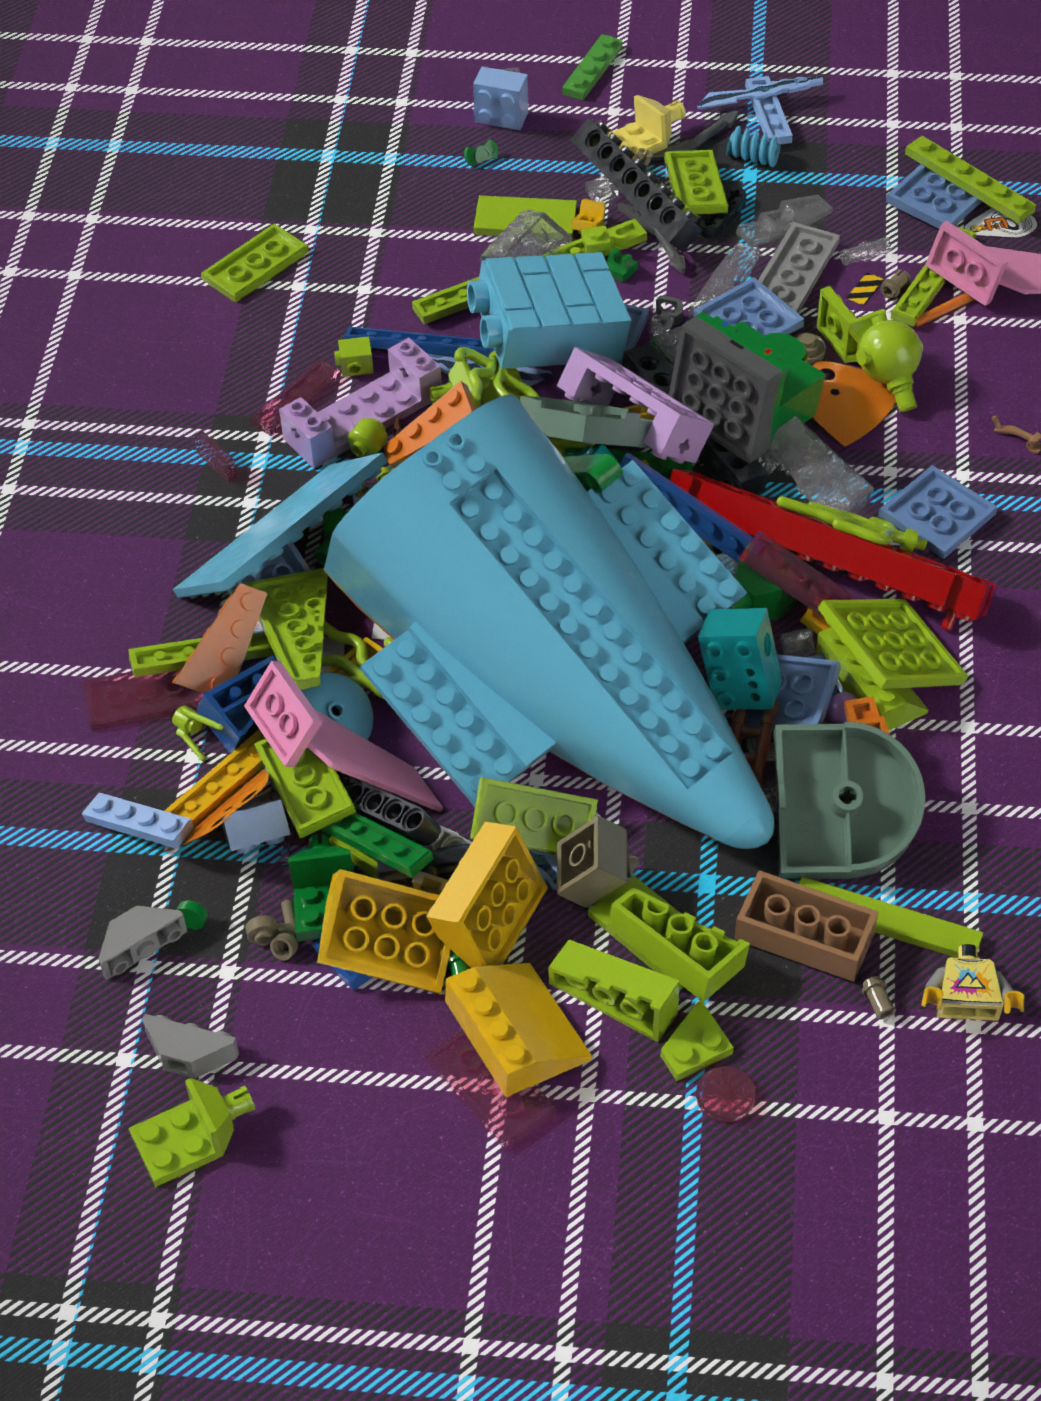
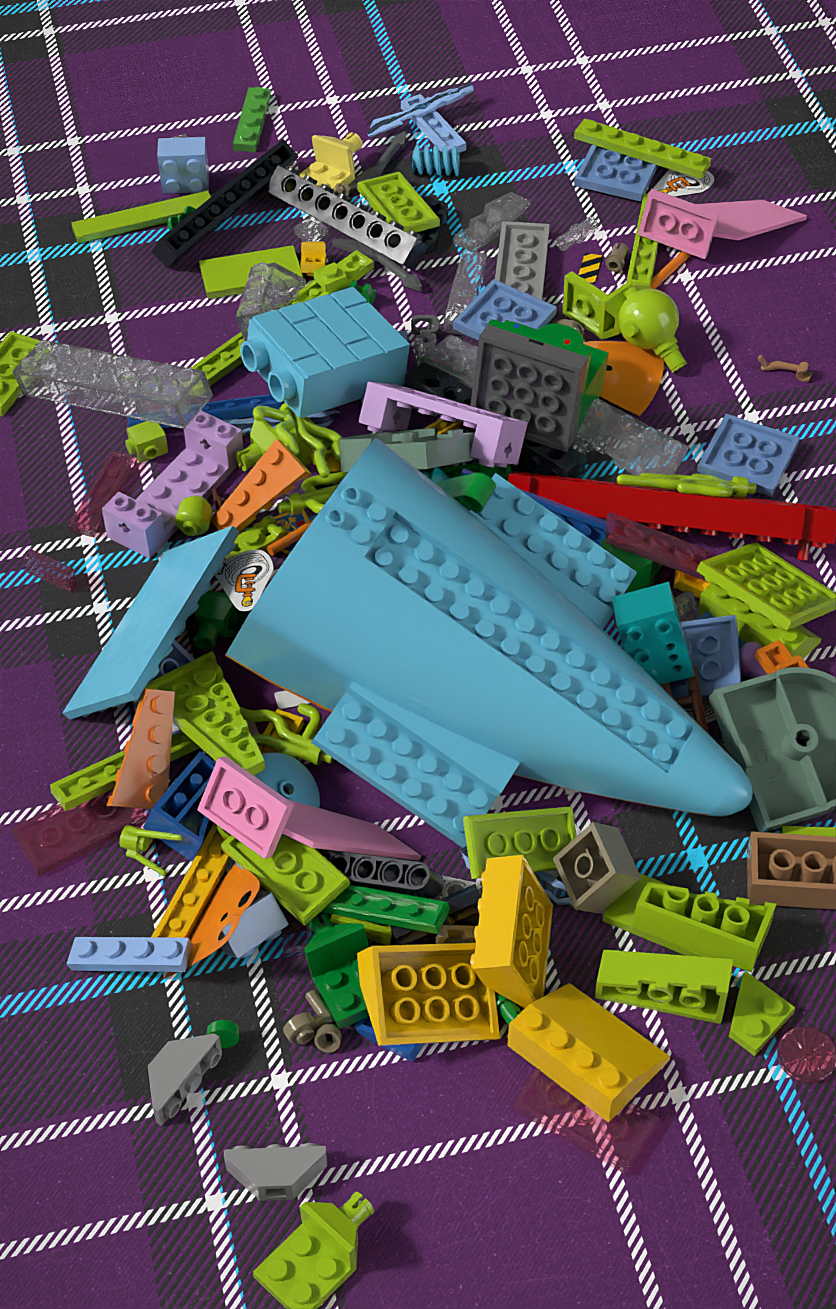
camera: 20 degrees left, 0 degrees up
(341, 294) = (113, 383): none -> clear brick
(442, 140) = (135, 218): none -> lime tile
(522, 145) = (222, 205): none -> black brick

